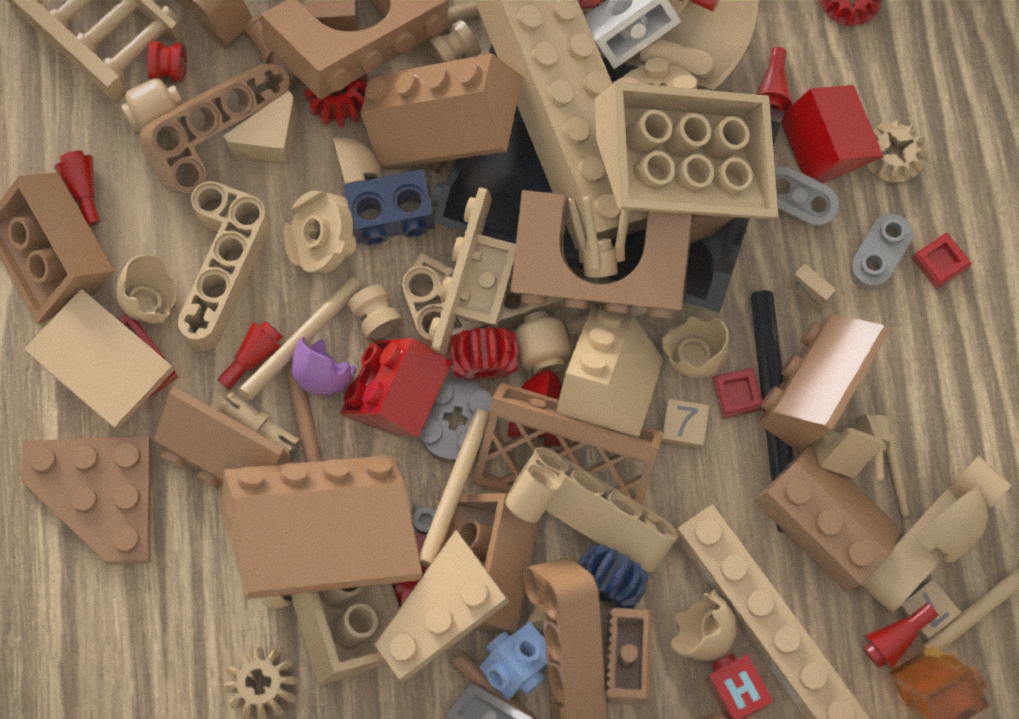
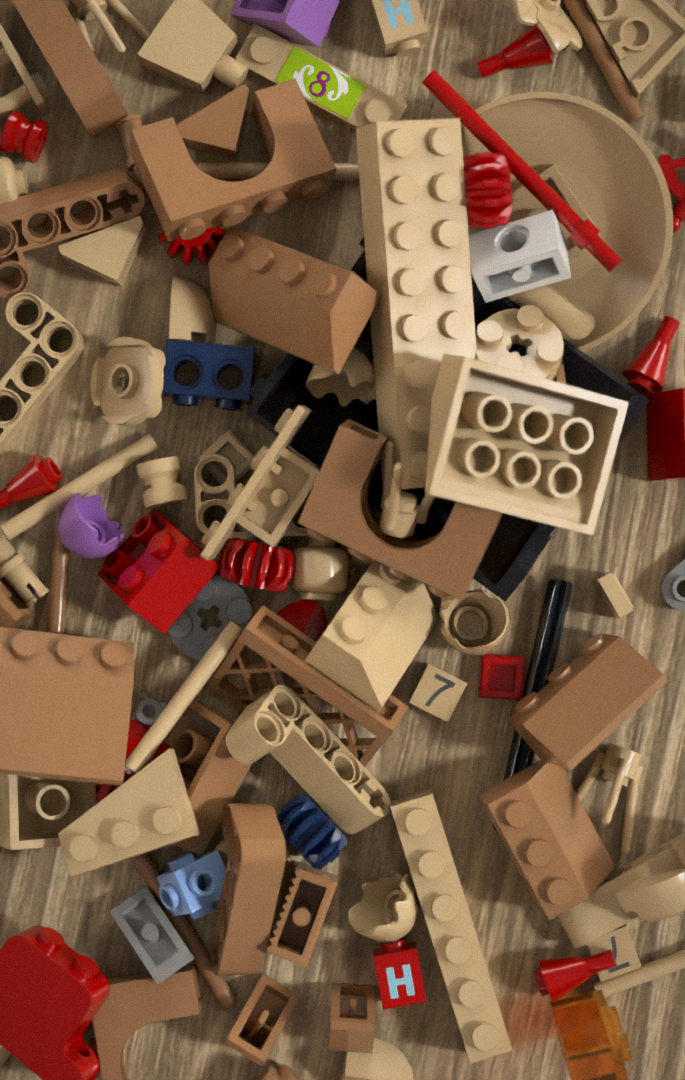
camera: 15 degrees right, 15 degrees up
(455, 45) = (326, 214): tan wheel -> none
(511, 170) = (353, 382): none -> tan hair
(800, 196) = (632, 493): light grey plate -> none
(849, 450) = (592, 777): tan panel -> none

